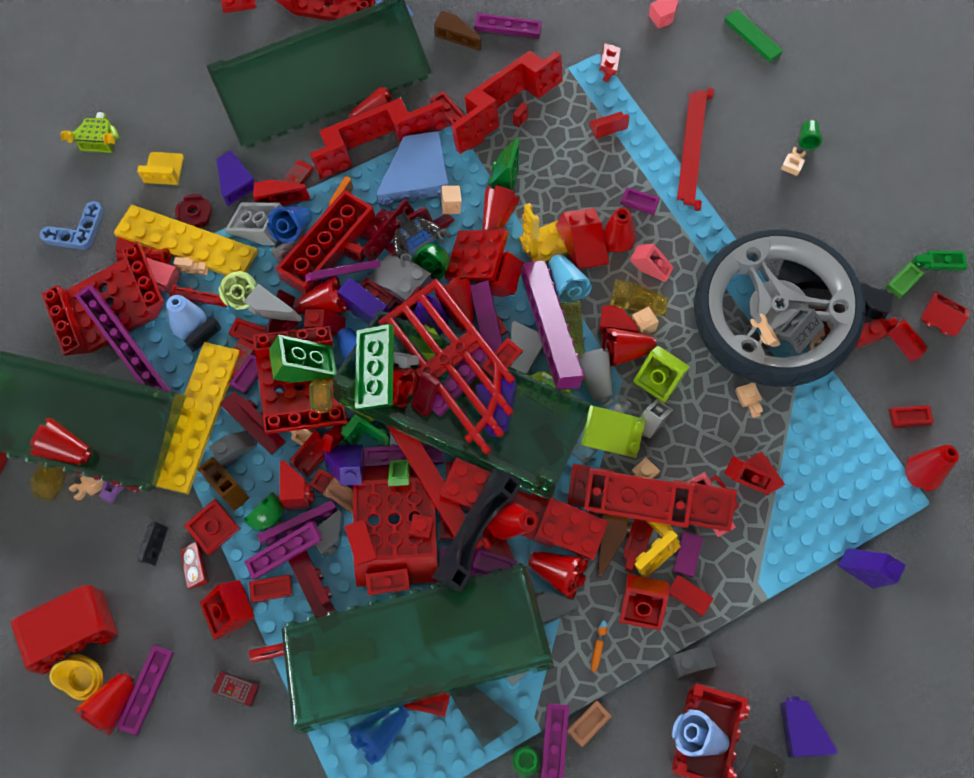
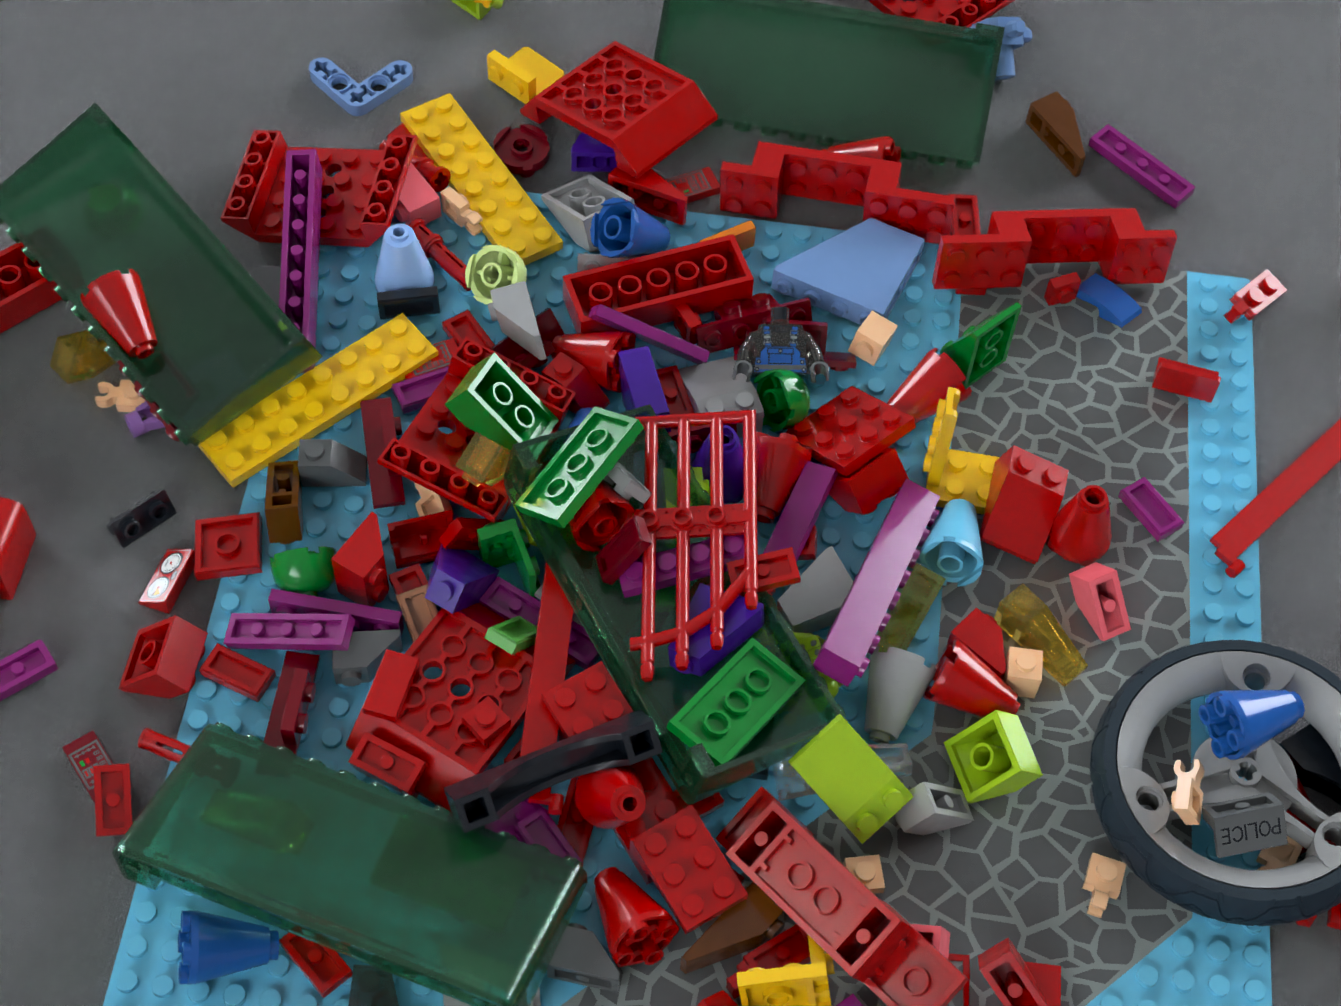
camera: 30 degrees right, 10 degrees down
(250, 153) = (627, 105): none -> red slope
(261, 699) = (112, 799): none -> red plate
(537, 434) = (736, 703): none -> green plate
(545, 105) = (1110, 299): none -> blue slope
(768, 279) = (1248, 719): none -> blue cone

